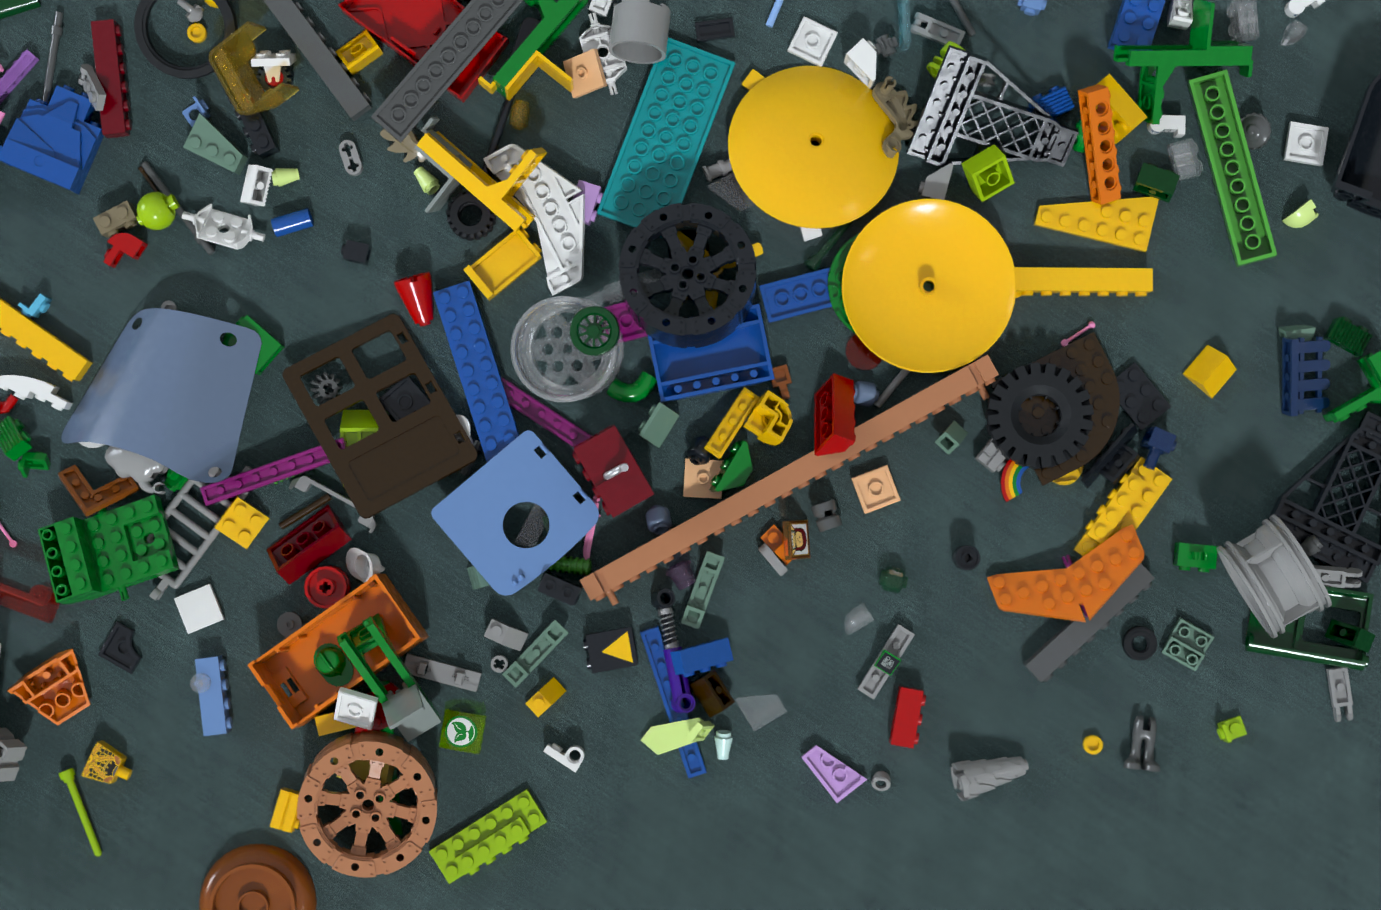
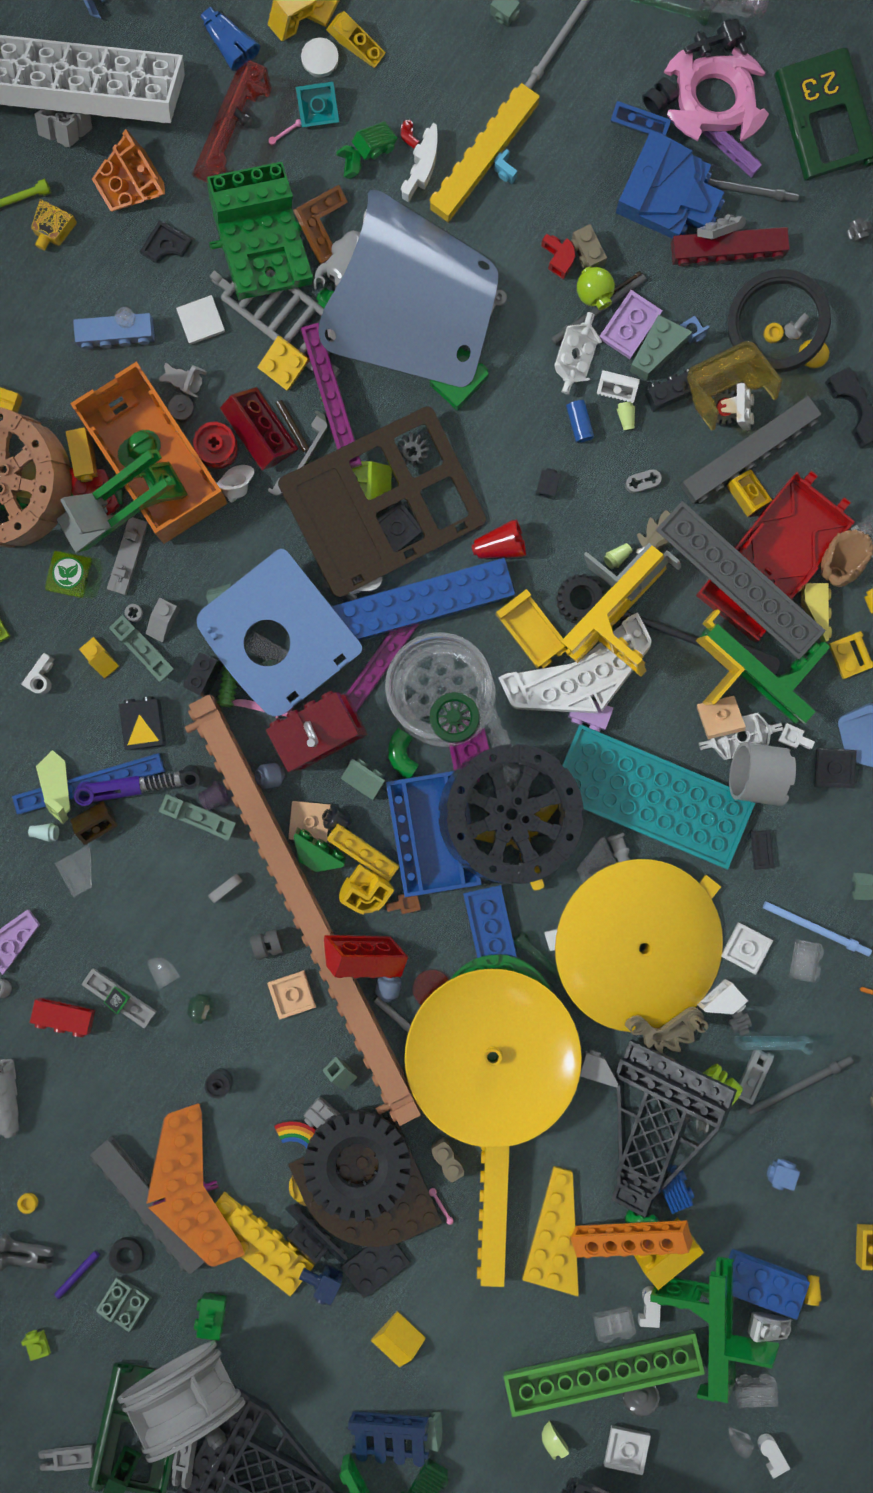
camera: 90 degrees right, 0 degrees up
(192, 175) = (630, 324): none -> lavender plate
(262, 618) = (188, 381): none -> light grey hair
(355, 708) = (89, 467): white tile -> none
(519, 114) = (681, 650): clear yellow brick -> none
(702, 657) = (129, 814): blue brick -> none
(774, 539) = (240, 896): orange slope -> none
(796, 539) = (243, 912): tile -> none
(988, 173) = (606, 1122): lime brick -> none
(1035, 325) = (451, 1163): none -> dark tan brick
(1156, 182) = (592, 1294): dark green brick -> none
(1161, 692) = (77, 1274): none -> dark purple bar

